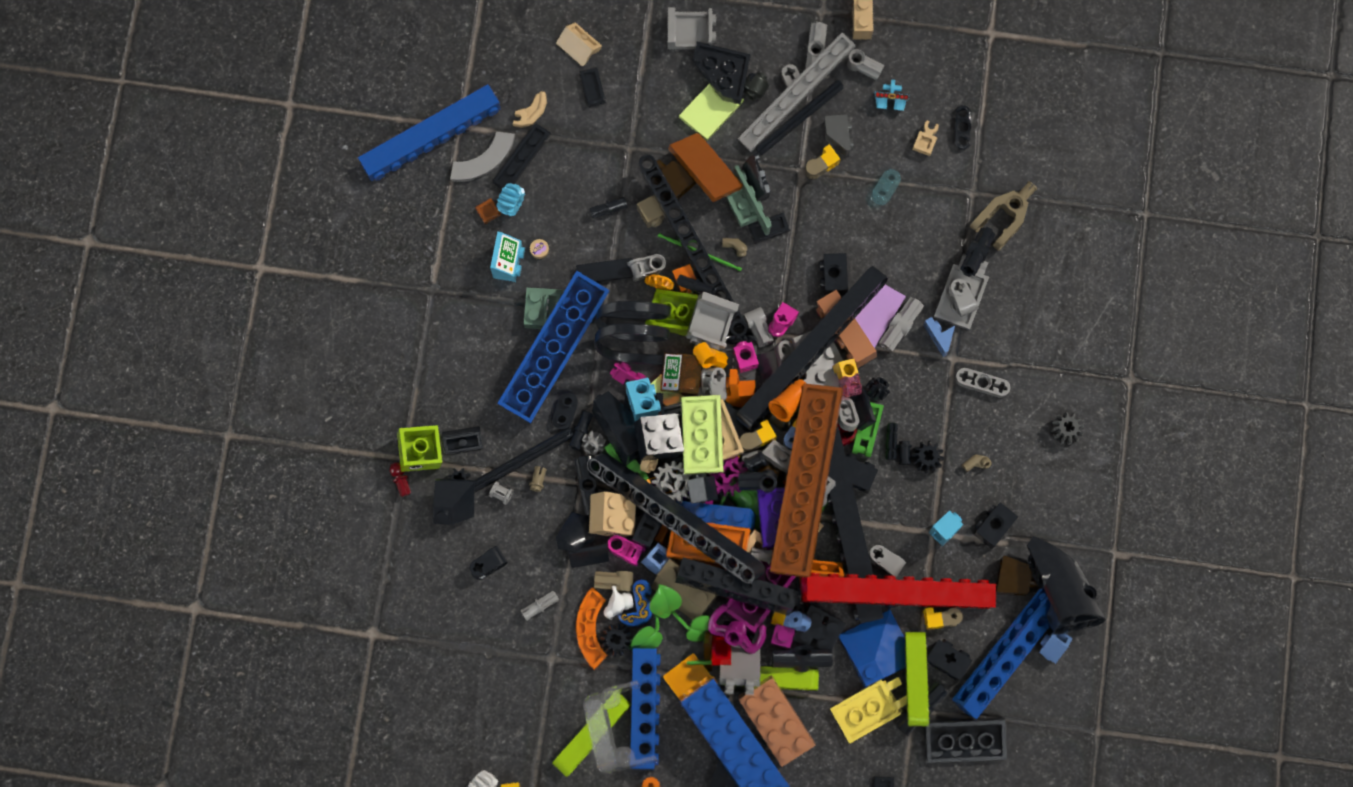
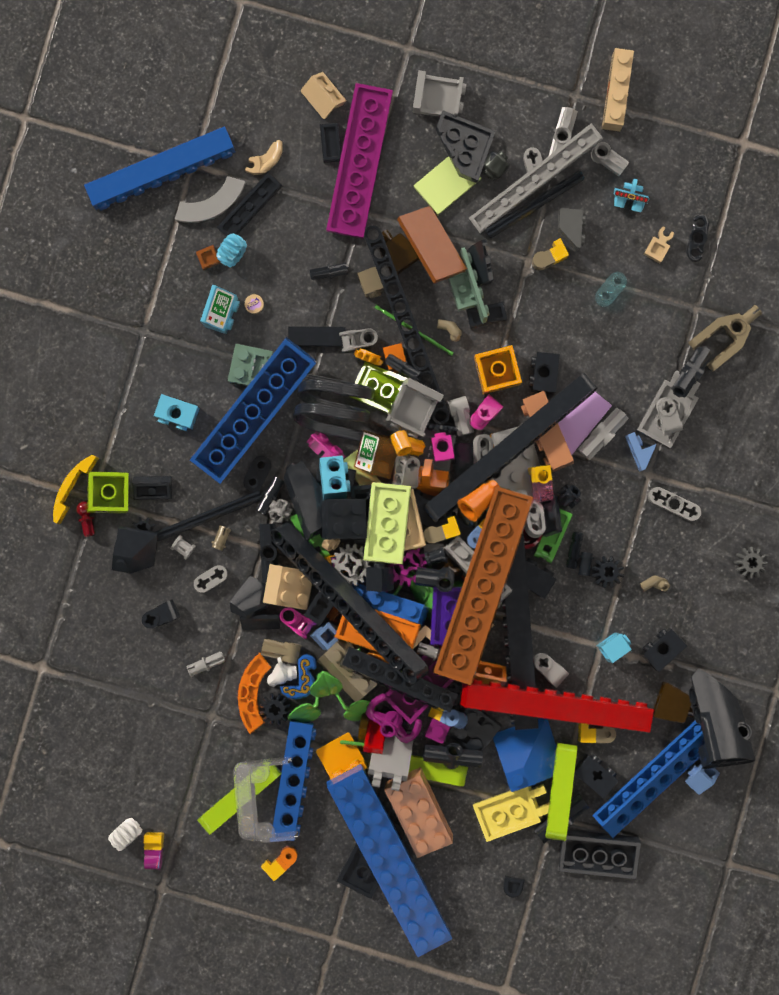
camera: 10 degrees right, 10 degrees up
(391, 427) = (60, 509): none -> yellow slope
(468, 355) = (168, 404): none -> medium azure brick
(530, 517) = (208, 575): none -> light grey beam
(623, 100) = (359, 161): none -> magenta plate
(788, 276) = (497, 369): none -> light orange brick

